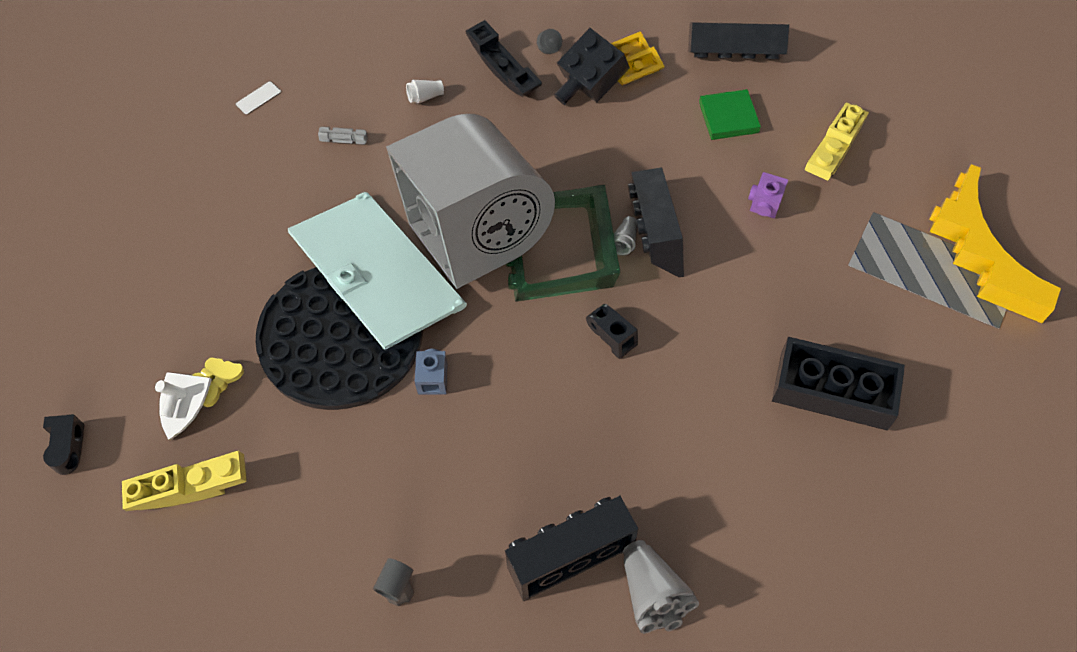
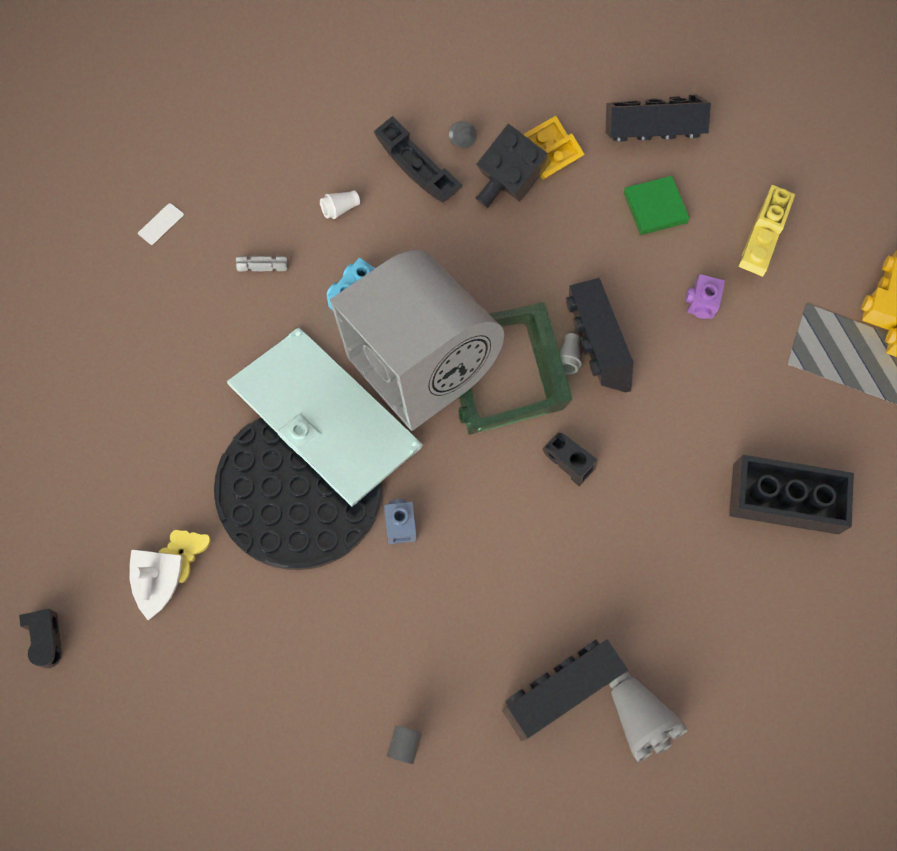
camera: 15 degrees left, 10 degrees up
(184, 485) = (175, 666): light yellow slope -> none

